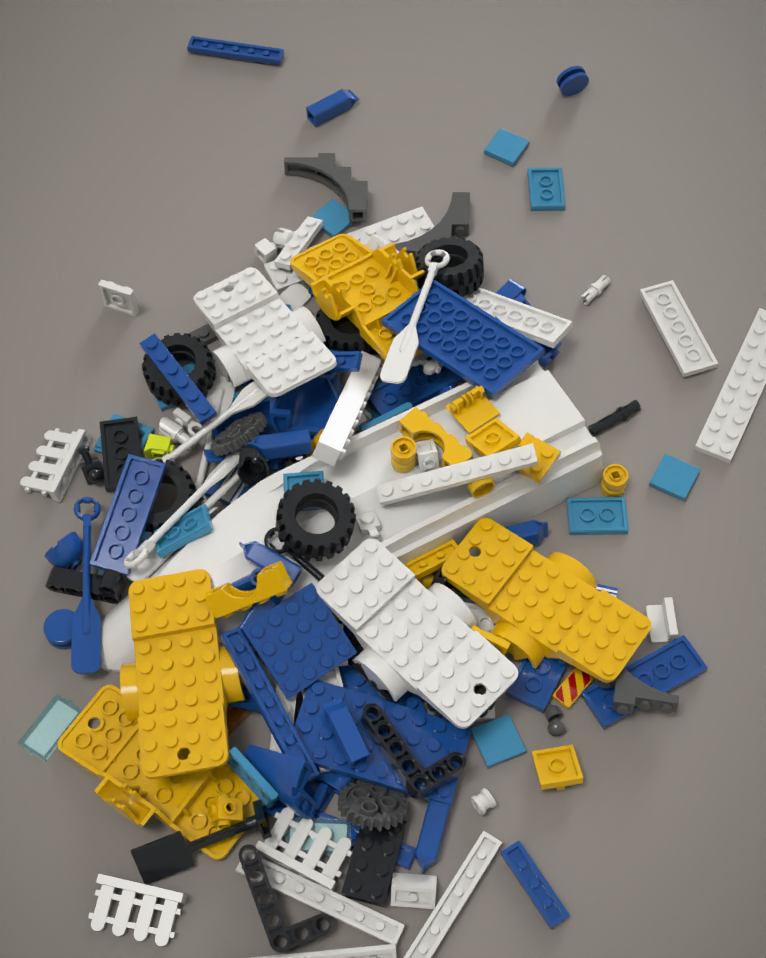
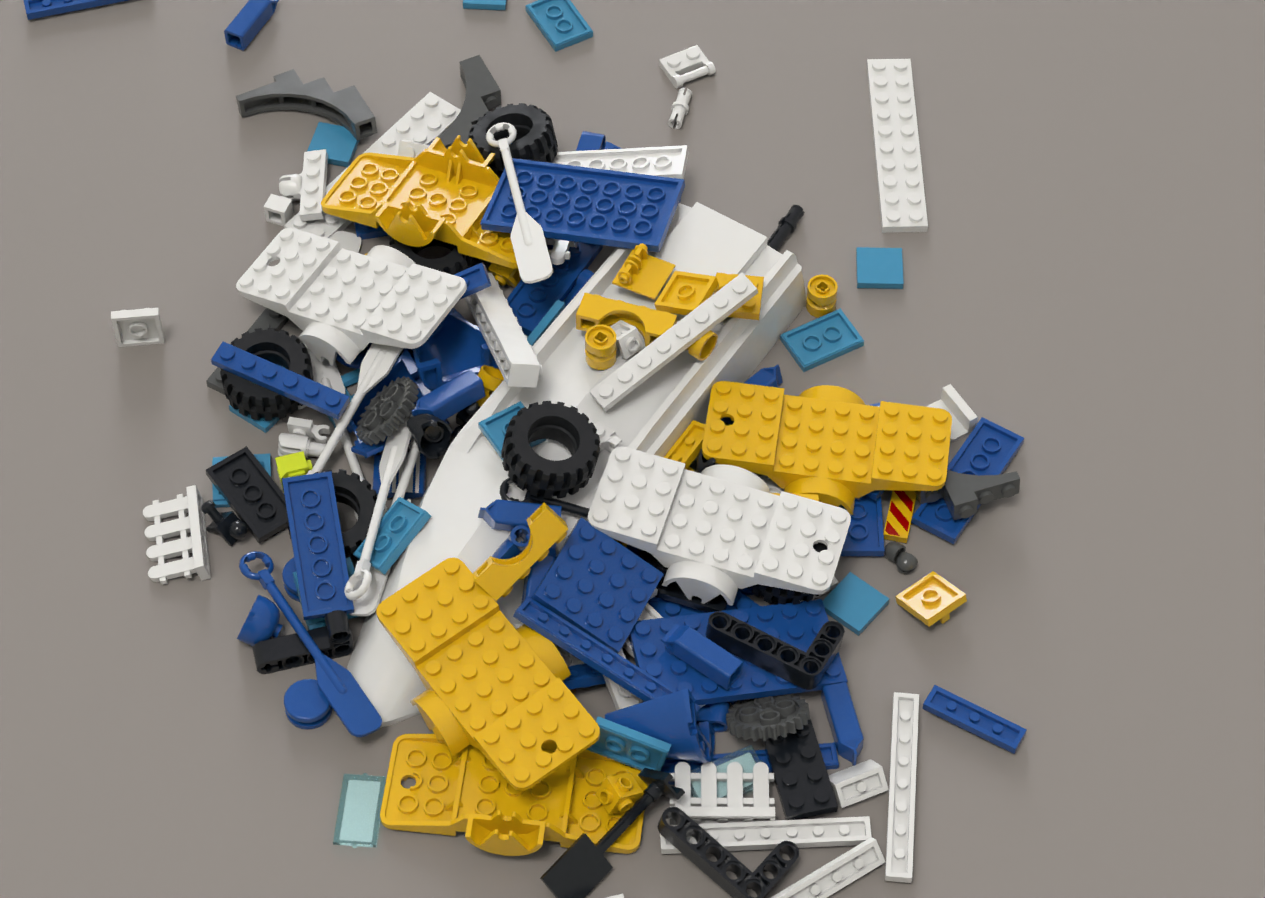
camera: 30 degrees left, 5 degrees down
(483, 801) = (875, 666): white wheel -> none
(619, 259) = (689, 61): none -> white plate
(678, 328) = (794, 113): white plate -> none

